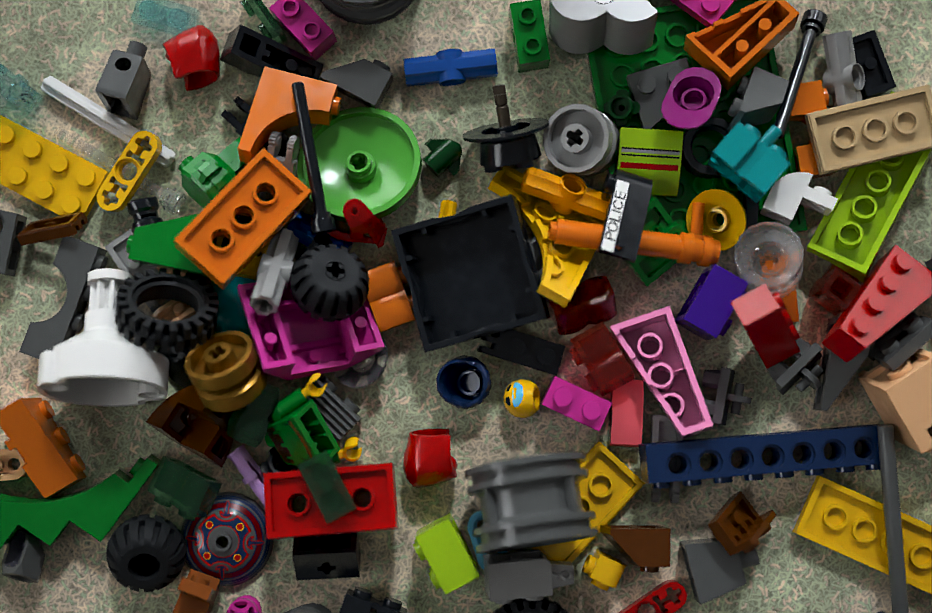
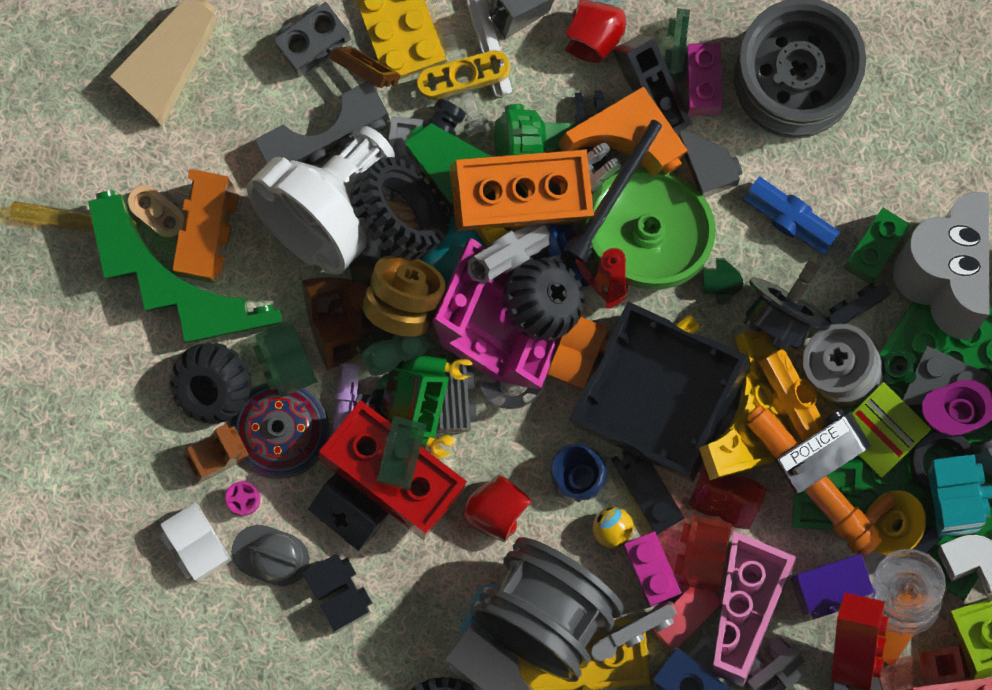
camera: 45 degrees right, 5 degrees down
(23, 557) = (113, 301): dark grey rock -> none
(446, 553) = (443, 593): lime brick -> none
(555, 77) = (868, 298): none -> black plate
(602, 459) = (632, 632): none -> light grey hinge

